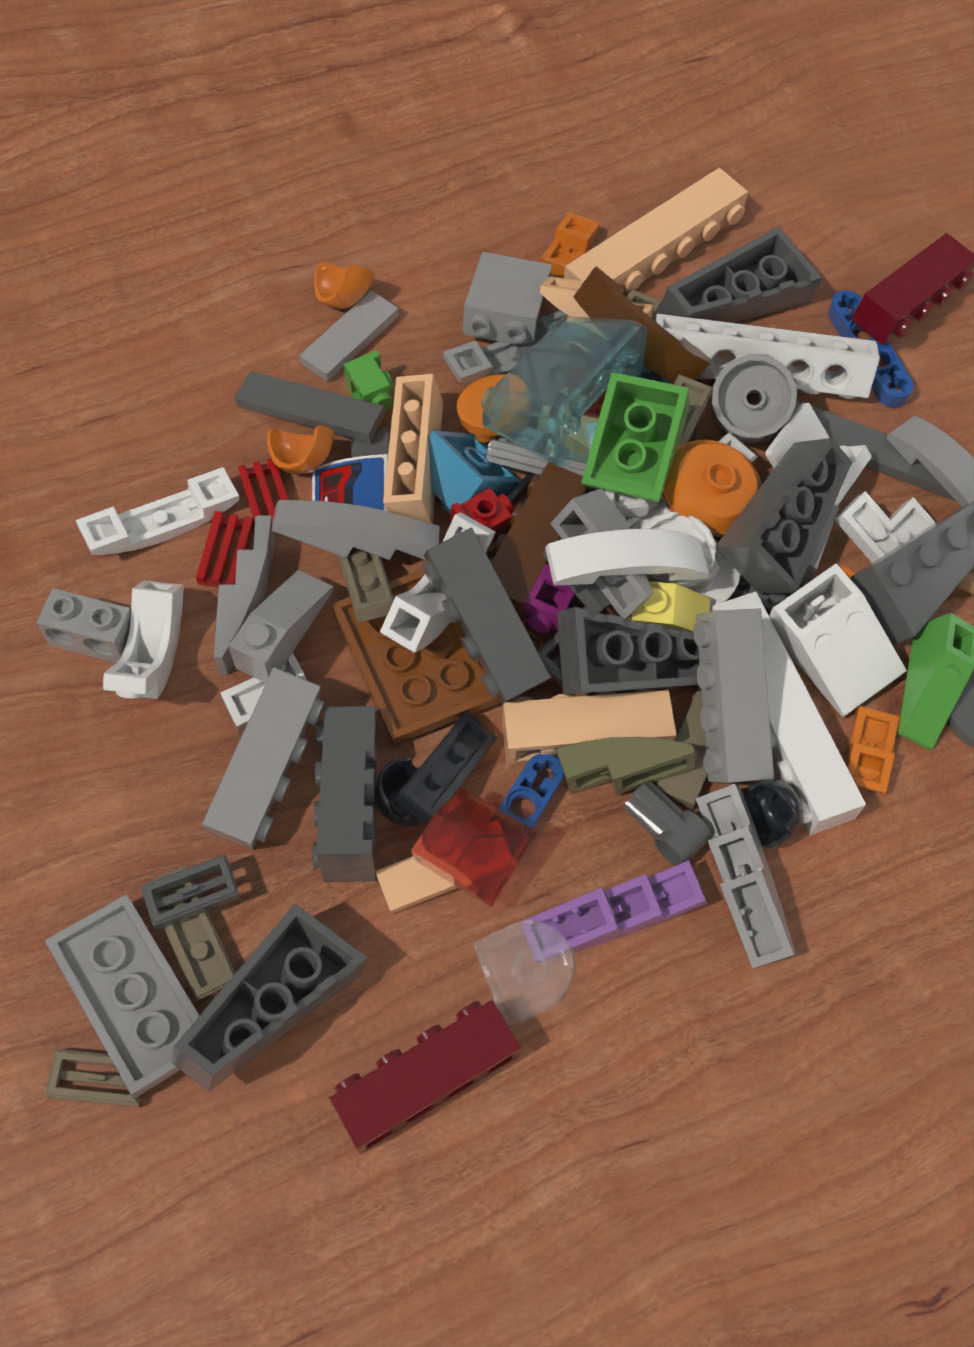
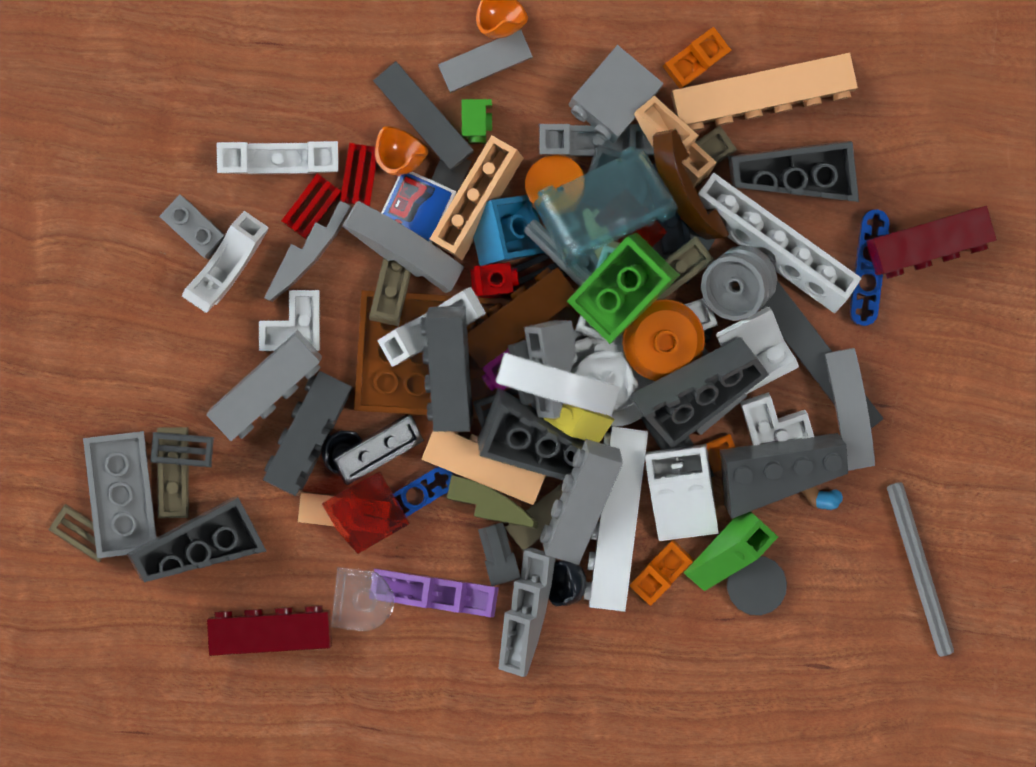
camera: 35 degrees right, 25 degrees up
(278, 625) = (320, 294): light grey slope -> none

